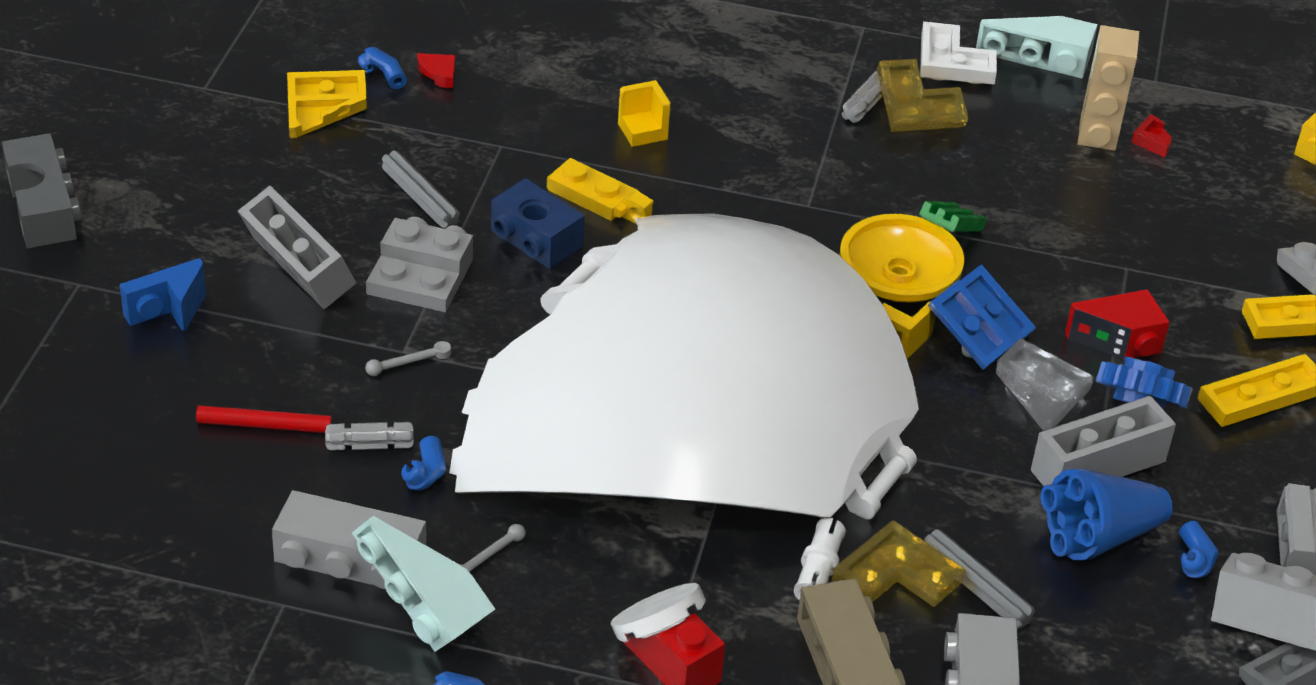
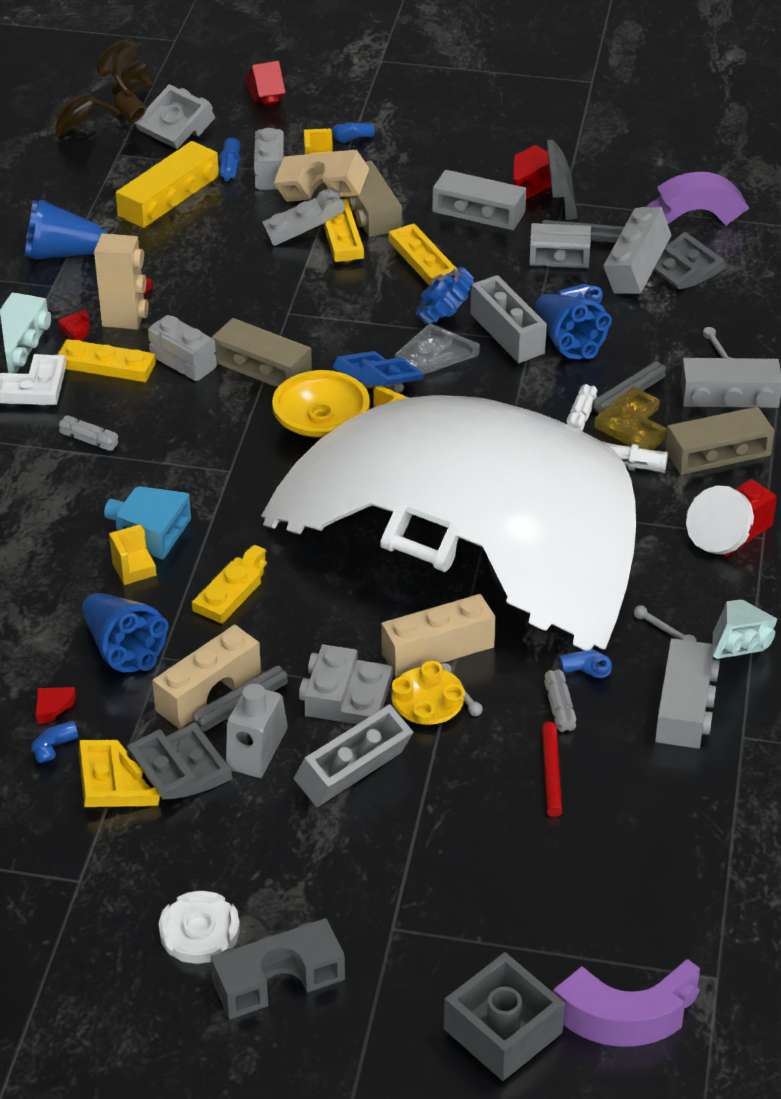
camera: 90 degrees left, 0 degrees up
(118, 154) = (199, 926): none -> white tile
(171, 290) = (419, 842): blue slope -> none
(332, 143) = (180, 762): none -> dark grey slope
(354, 181) = (256, 718): none -> light grey torso
(396, 325) = (428, 694): none -> yellow dish
(465, 169) = (184, 687): none -> tan arch
(475, 320) = (438, 634): none -> tan brick
(518, 96) = (125, 631): none -> blue cone
(537, 223) = (289, 614): dark blue brick -> none
(702, 130) = (160, 513): none -> dark azure torso
(914, 107) = (106, 402): clear yellow plate -> none
(926, 520) = (582, 407): none -> white axle
(952, 217) = (261, 380): green tile -> none
(1005, 113) = (108, 360): none -> yellow plate
(1015, 226) = (260, 353): none -> dark tan brick
(1018, 159) = (182, 347): none -> light grey brick
(1067, 92) = (75, 325): none -> red tile
(1119, 325) = (368, 308): red slope -> none
(1233, 62) = (59, 233): none -> blue cone

